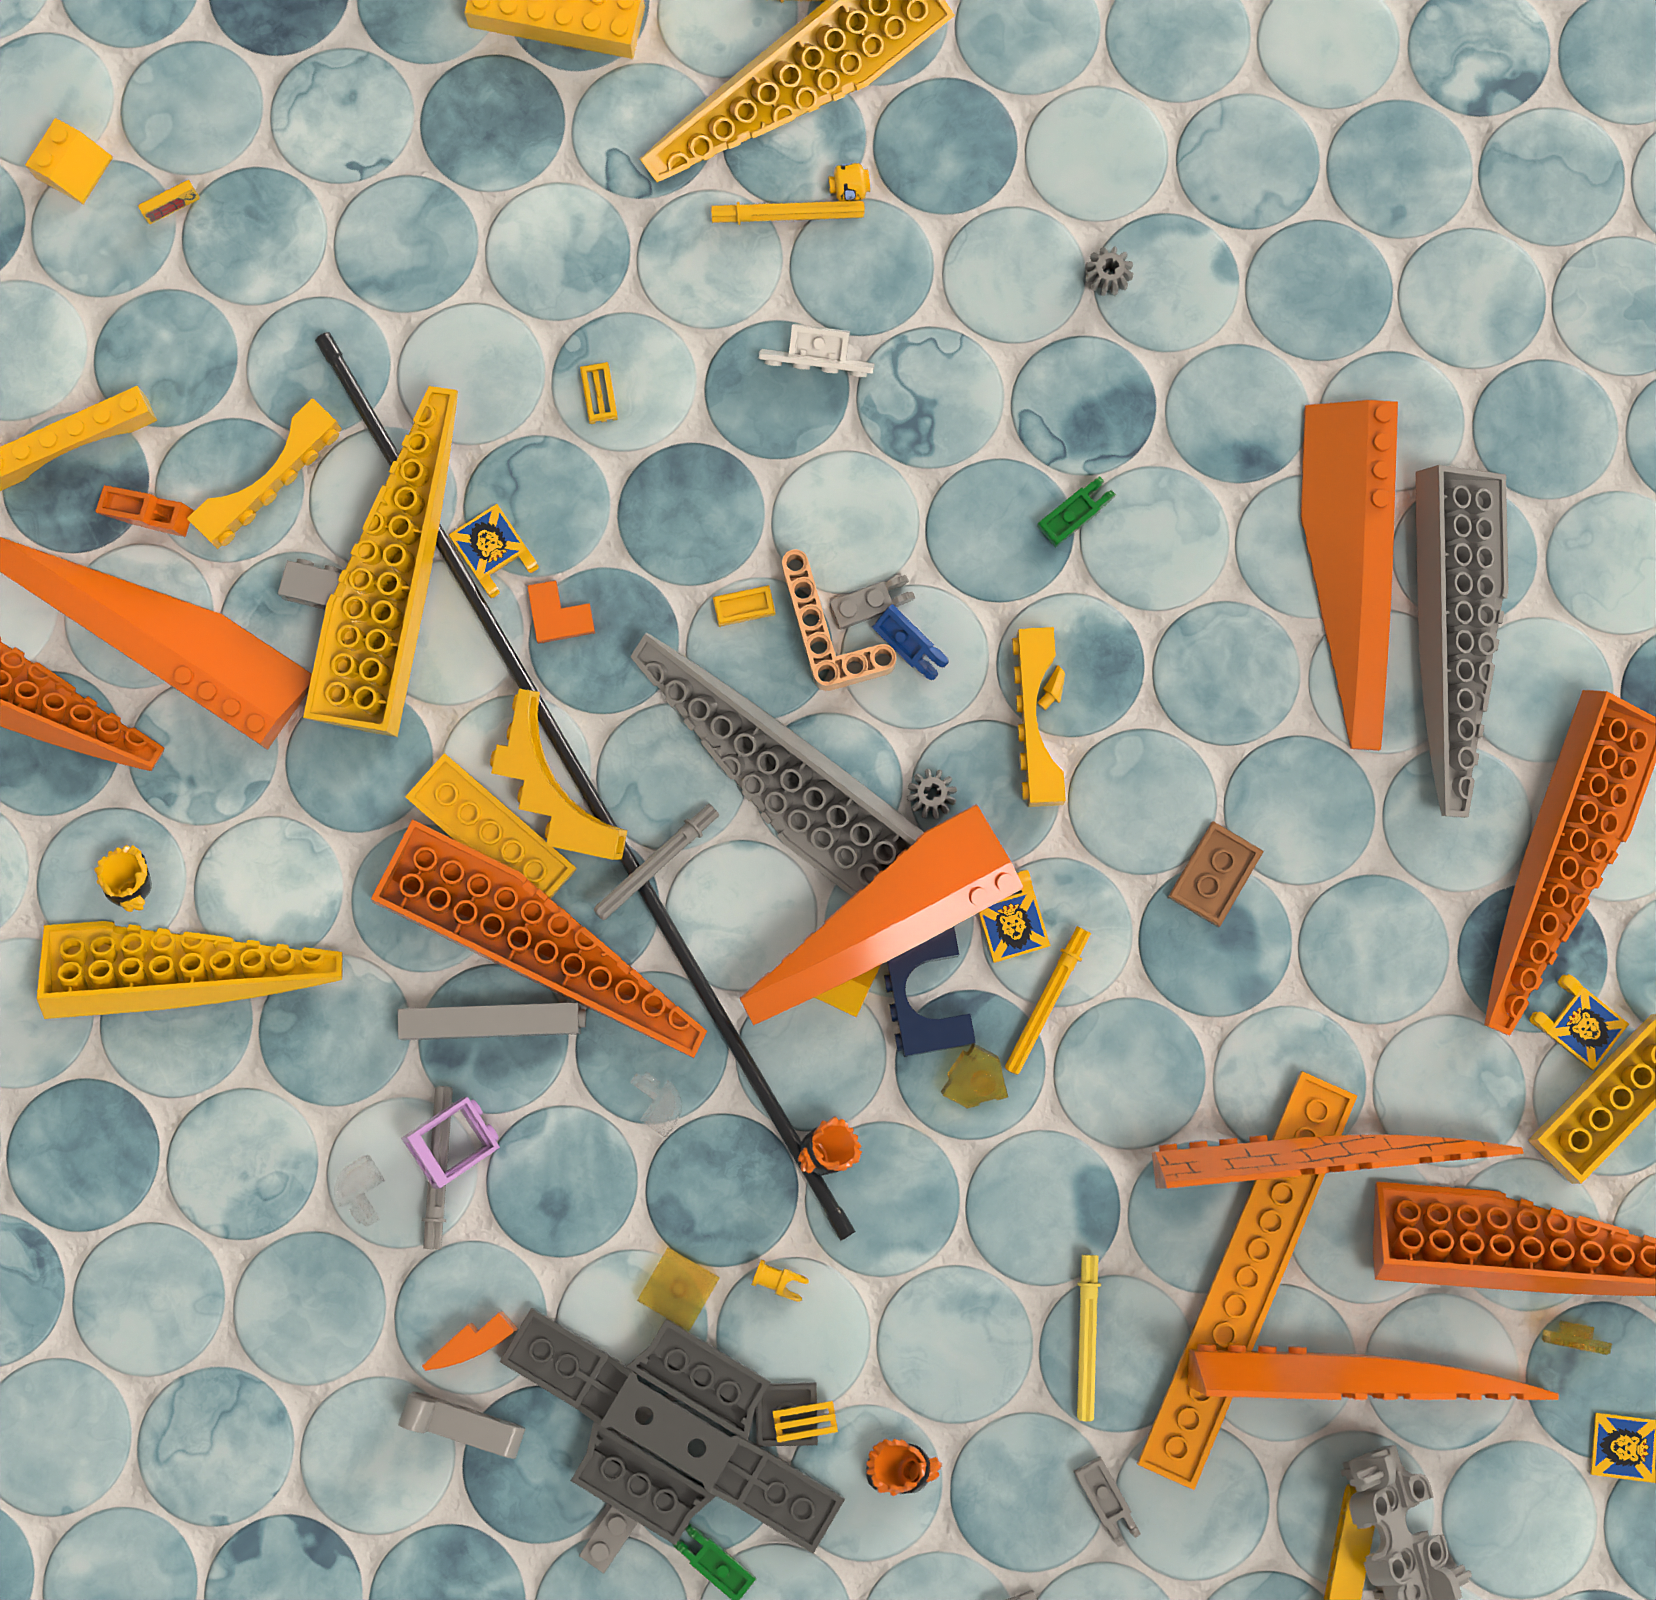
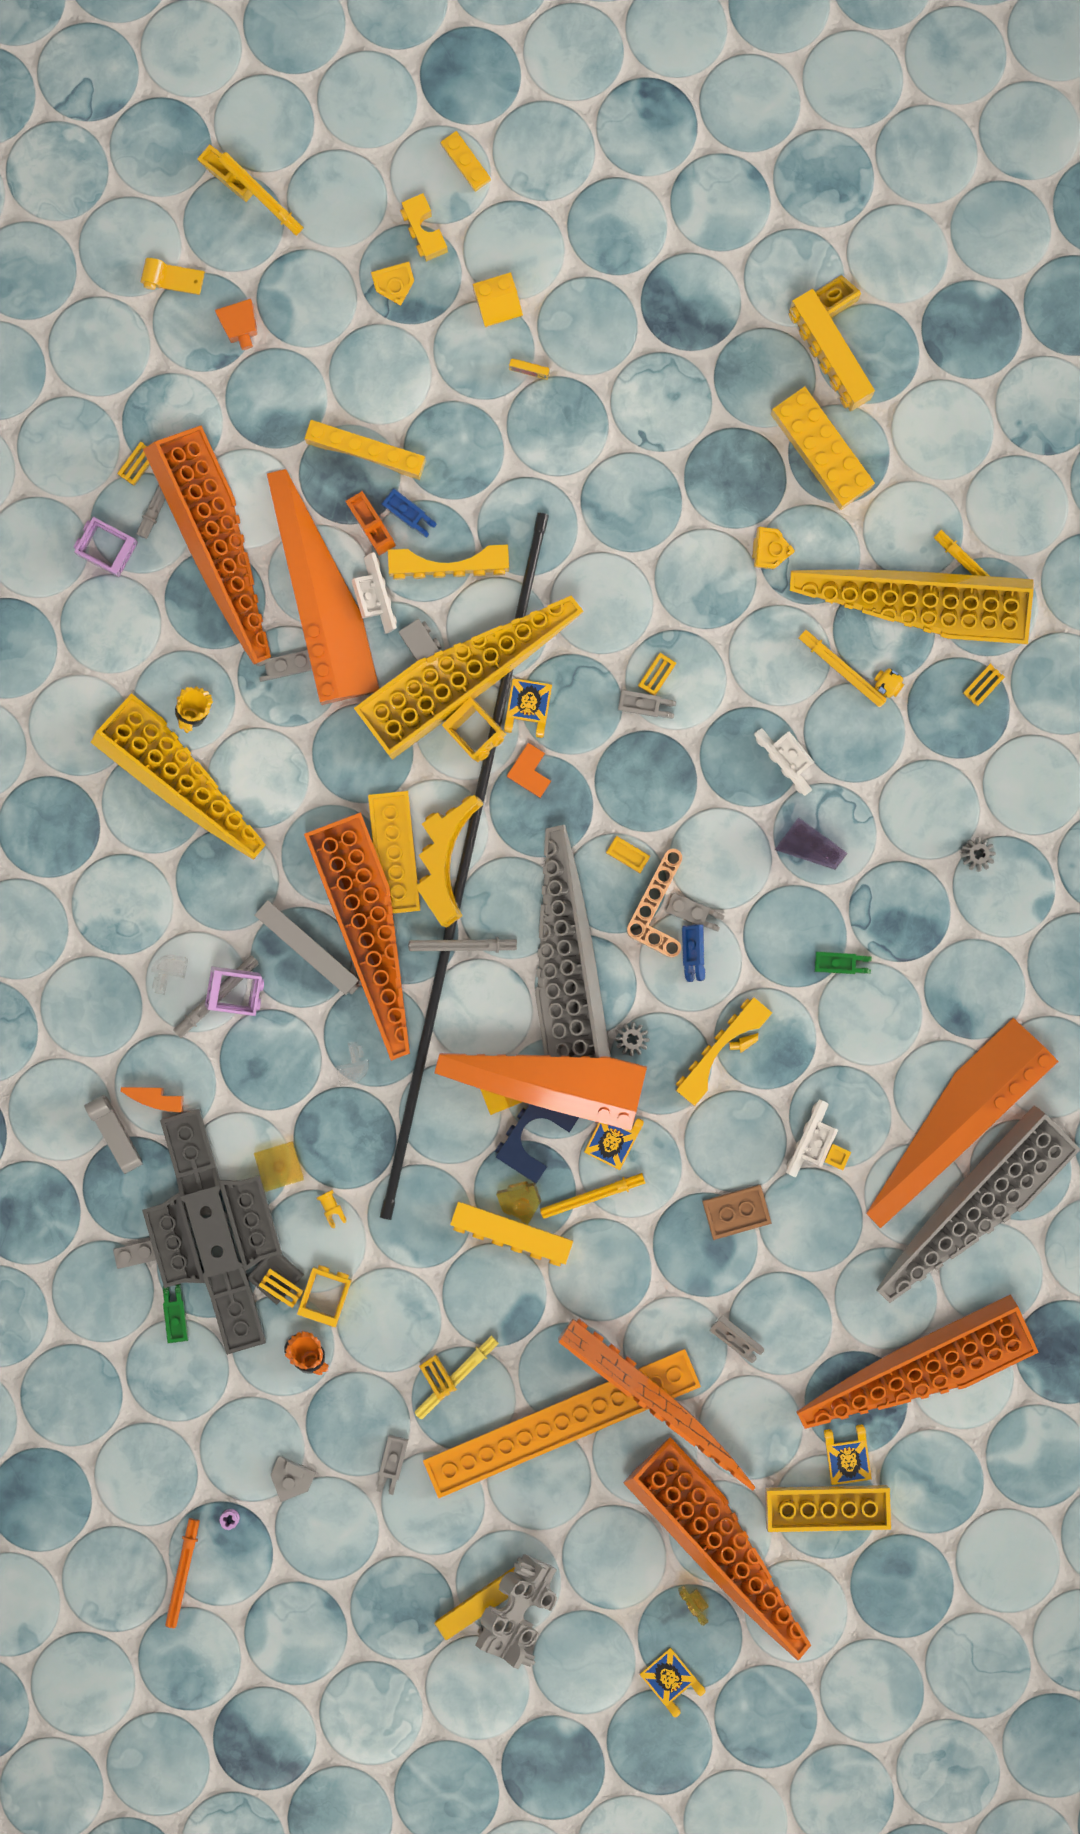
camera: 40 degrees right, 5 degrees up
(174, 463) = (407, 512): none -> blue hinge
(189, 742) = (286, 665): none -> light grey hinge
(216, 582) = (372, 594): none -> white bracket
(429, 619) = (460, 717): none -> yellow window
(595, 158) = (770, 548): none -> yellow plate
(615, 434) = (644, 704): none -> light grey hinge
(829, 1148) = (415, 1168): orange hair -> none
(874, 1413) = (319, 1316): none -> yellow window
(927, 417) = (811, 845): none -> clear purple wedge
(949, 76) = (995, 672): none -> yellow tile
(998, 1122) = (511, 1232): none -> yellow brick
(1092, 1362) = (446, 1391): none -> yellow tile
(1227, 721) = (814, 1142): none -> white bracket
(1265, 716) = (837, 1157): none -> yellow plate
(1330, 1375) = (565, 1516): orange wedge -> none
(1345, 1008) = (736, 1339): none -> light grey hinge

